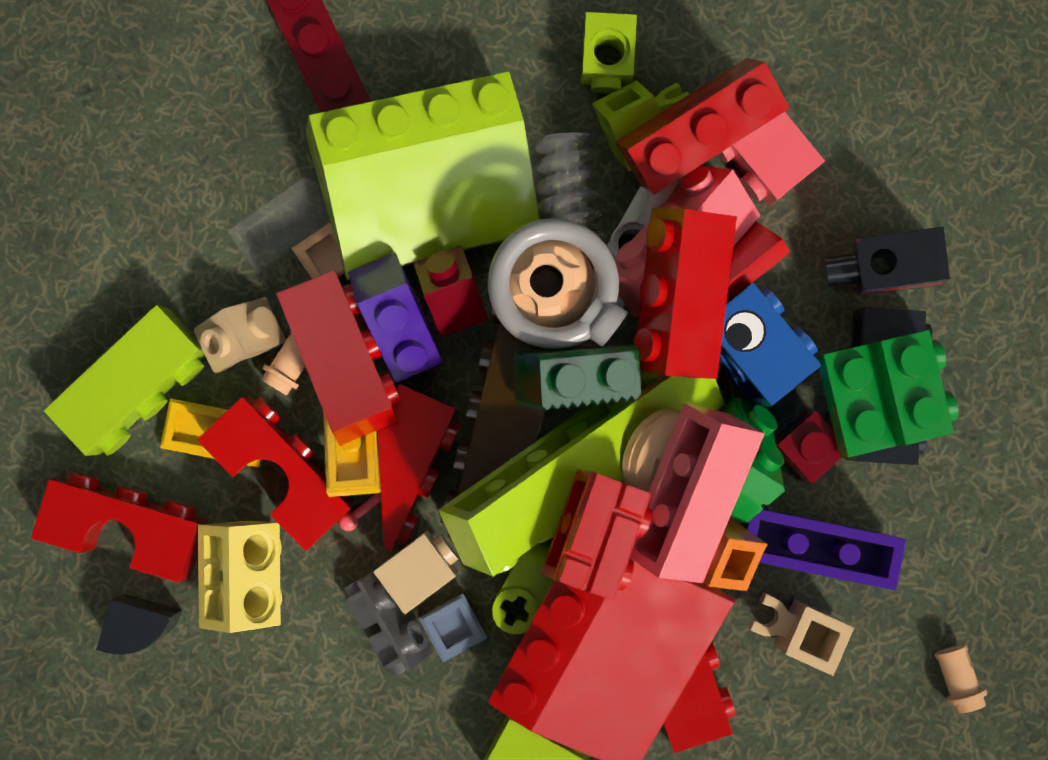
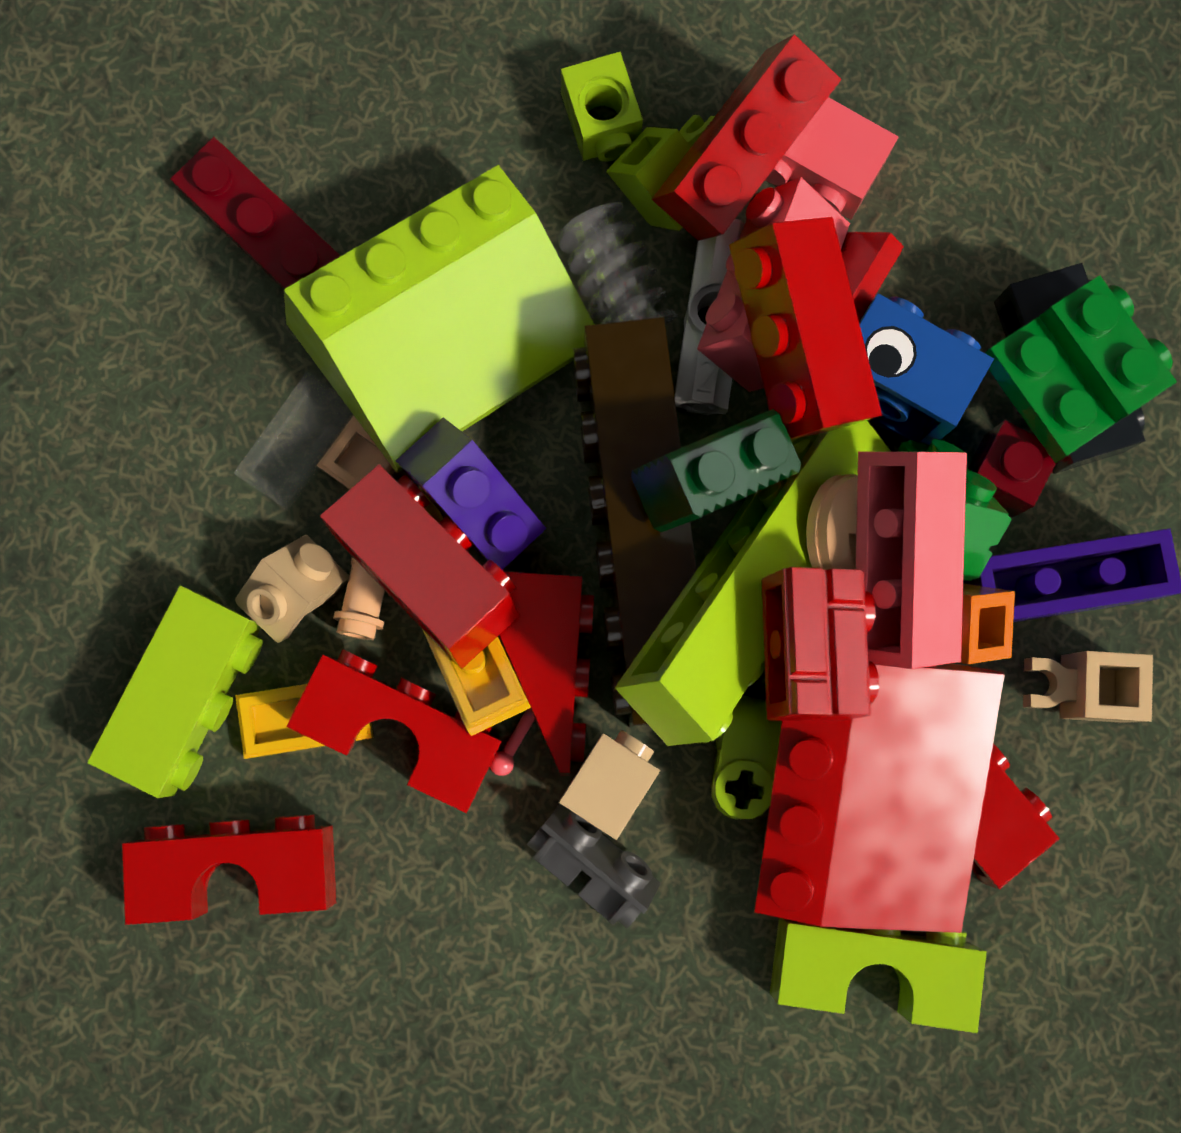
camera: 25 degrees left, 5 degrees down
(135, 624) = (290, 984): black brick -> none
(239, 575) = (396, 875): light yellow brick -> none
(450, 291) = (524, 442): dark red brick -> none
(453, 627) = (674, 842): sand blue tile -> none
(574, 295) = (633, 414): light nougat piece -> none
(599, 319) = (718, 395): light grey piece -> none
(915, 261) = (1039, 210): black torso -> none

